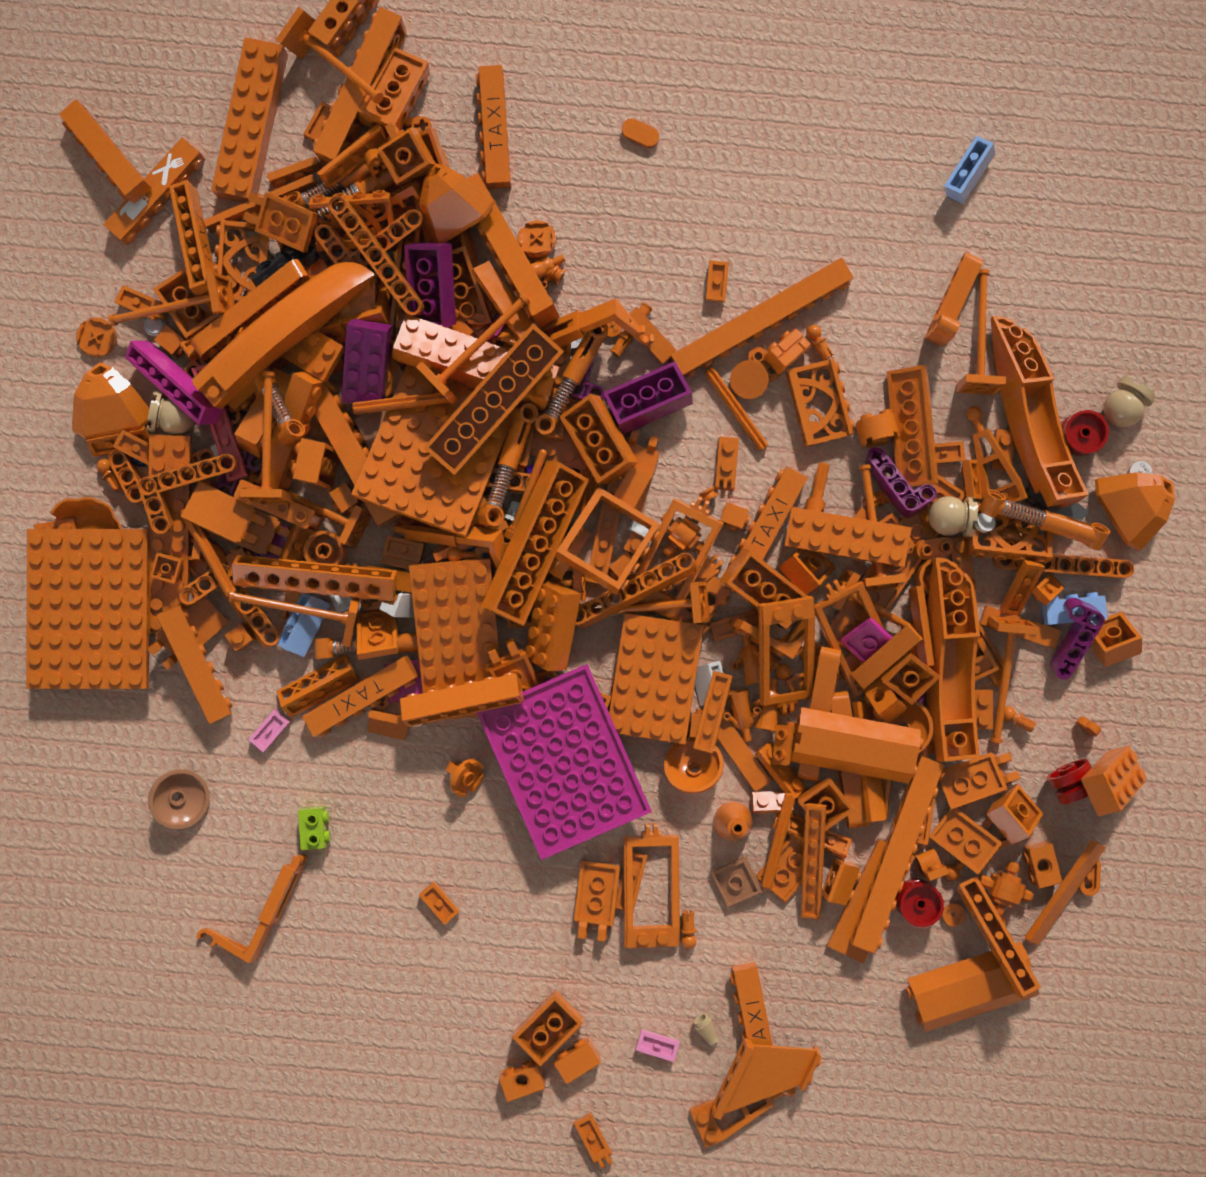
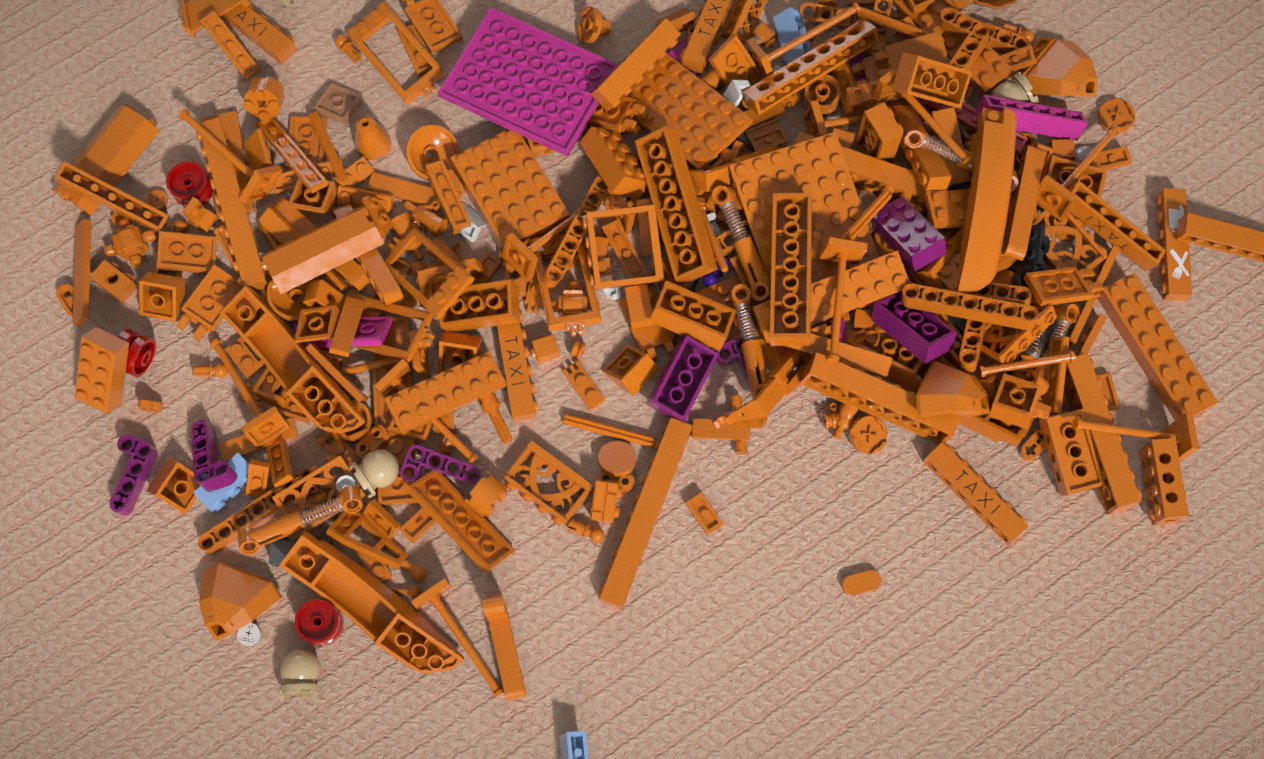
camera: 145 degrees right, 15 degrees down
(237, 462) = (931, 80): none -> orange brick
(331, 155) = (1070, 356): none -> orange bar
(680, 444) = (631, 369): none -> orange slope
(790, 1013) = (229, 44): none -> orange tile
(799, 933) = (264, 98): none -> orange brick
(862, 851) = (260, 180): none -> orange tile
(990, 402) = (413, 592): none -> orange hand
(1144, 677) = (129, 475): none -> magenta beam

